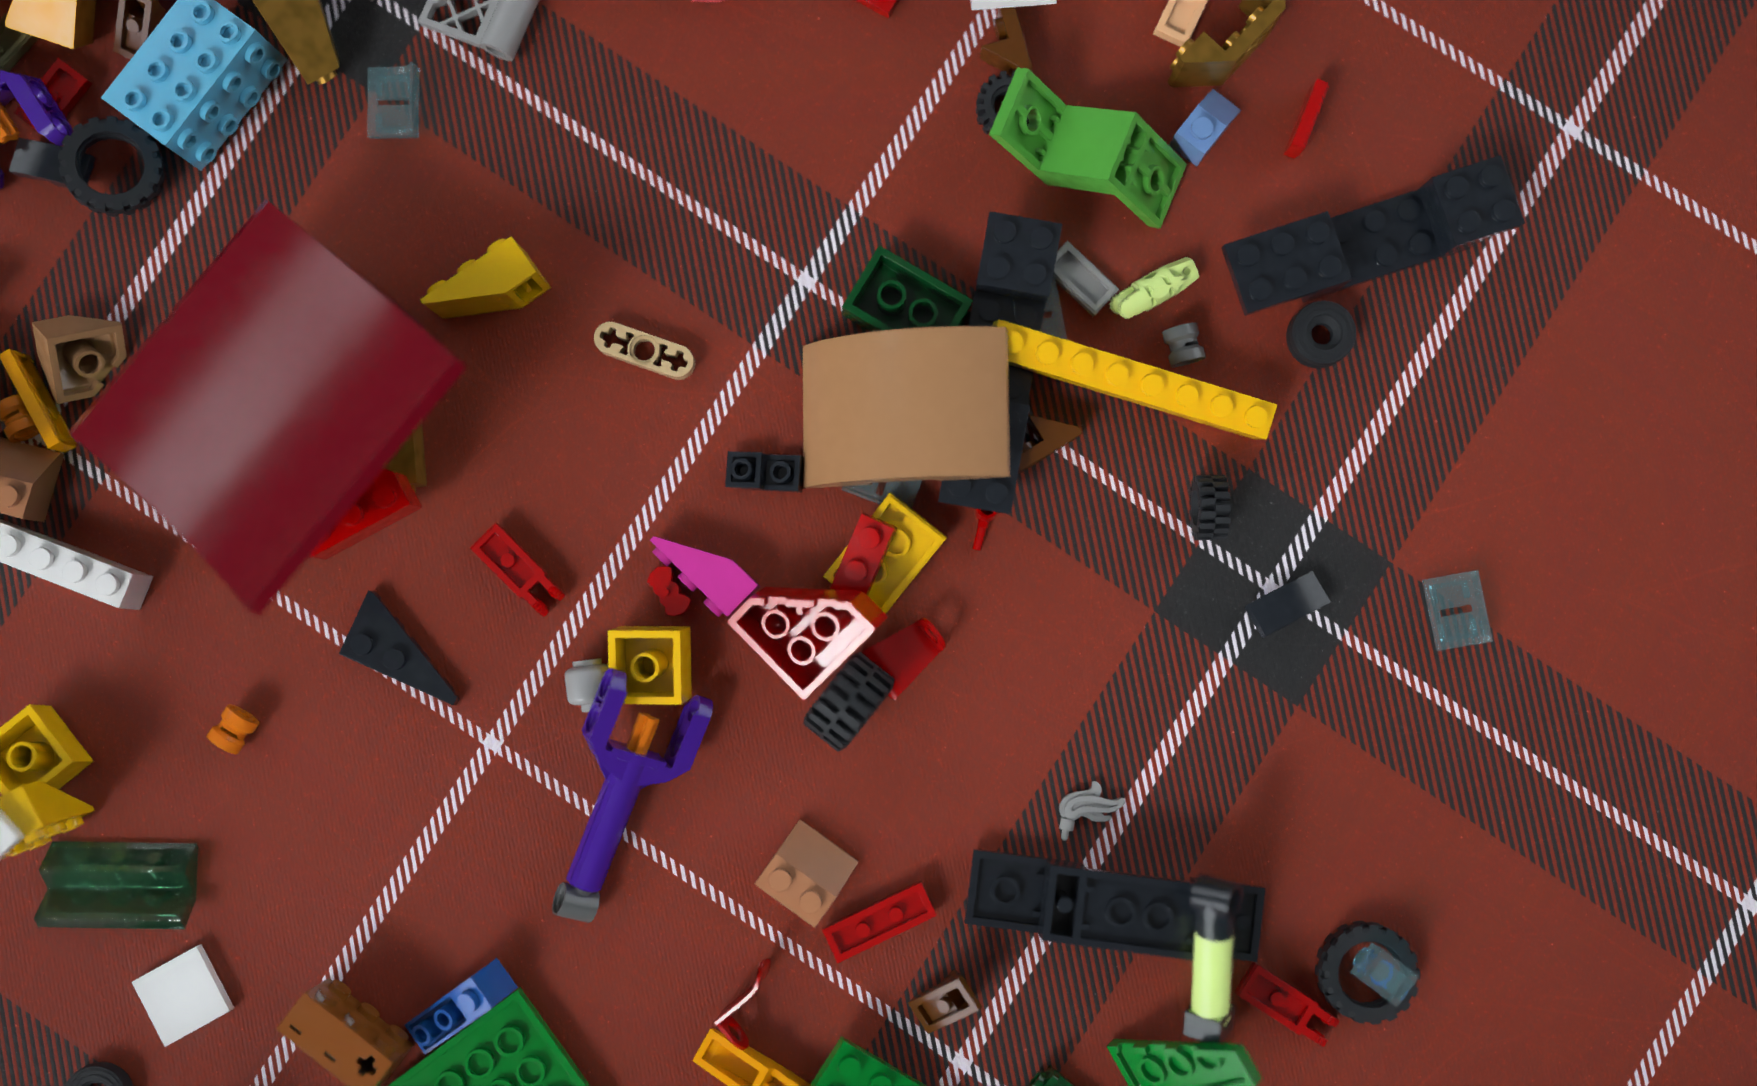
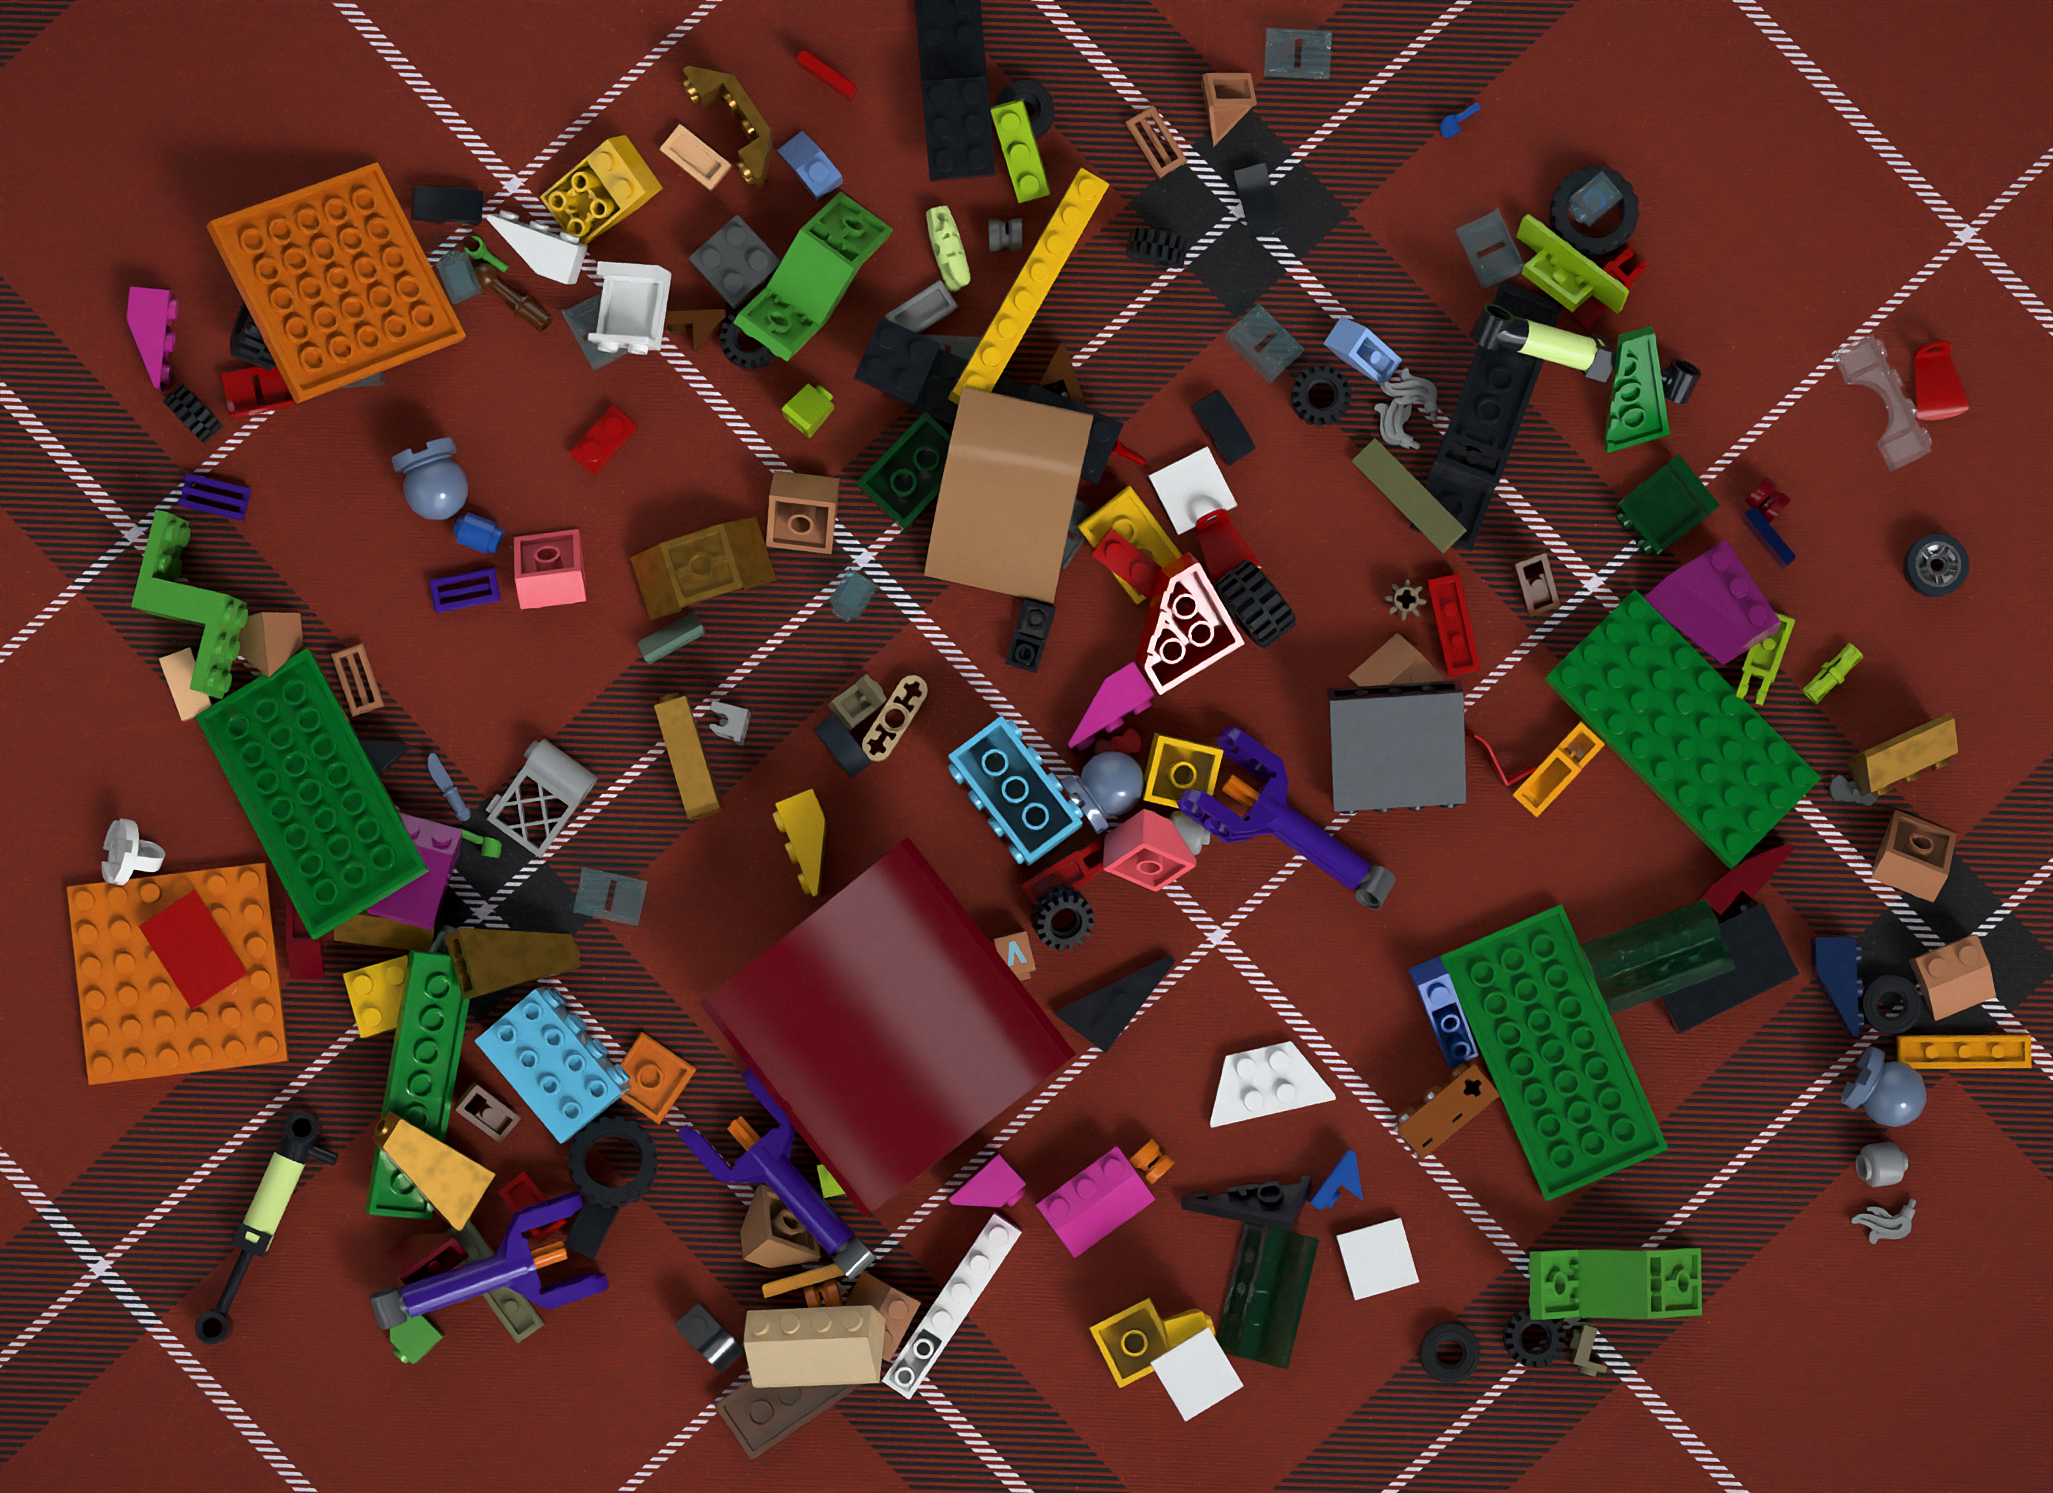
camera: 85 degrees left, 0 degrees up
(137, 322) = (770, 1163): none -> dark purple piece
(153, 562) = (991, 1186): none -> dark pink slope
(180, 676) = (1095, 1201): none -> dark pink slope
(210, 862) = (1256, 1204): none -> black wing
(218, 192) = (655, 1077): none -> orange tile
(257, 934) = (1343, 1174): none -> blue slope
(344, 833) = (1266, 1083): none -> white wing
(419, 534) = (1017, 954): none -> nougat brick
(454, 583) = (1052, 904): none -> black tyre
(548, 144) = (687, 757): none -> pearl gold slope
(557, 647) = (1147, 851): none -> coral slope
(585, 491) = (1015, 791): none -> medium azure brick
(597, 181) = (736, 725): none -> light grey hinge
(598, 299) = (842, 745): none -> black wheel
(615, 588) = (1108, 787): none -> sand blue tile
(650, 306) = (858, 702): none -> dark tan bracket
(675, 100) = (671, 638): none -> sand green slope
(730, 894) = (1397, 746): none -> panel
(757, 115) = (702, 566): none -> pearl gold slope
(761, 275) = (852, 596): none -> clear light blue brick
(838, 202) = (802, 512): none -> nougat slope
(886, 870) = (1412, 594): none -> dark tan gear
(946, 180) = (809, 409): none -> lime slope
(959, 606) = (1192, 490): none -> white tile
(1007, 842) = (1409, 495): none -> olive tile
(1034, 623) = (1223, 427): none -> black slope
(1085, 66) = (735, 263): none -> dark grey brick
(1115, 721) = (1326, 376): none -> black tyre
(1123, 817) = (1412, 390): none -> light grey piece
(1126, 662) = (1275, 355): none -> clear light blue piece
(1153, 754) = (1362, 350): none -> light blue slope
(1278, 338) = (1020, 150): none -> lime plate
(1295, 958) = (1565, 271): none -> lime bracket
(1300, 503) = (1170, 166): none -> nougat tile
(1312, 858) = (1482, 235): none -> clear light blue piece
(1388, 546) = (1226, 100): none -> nougat slope
(1420, 792) = (1450, 127): none -> blue hand

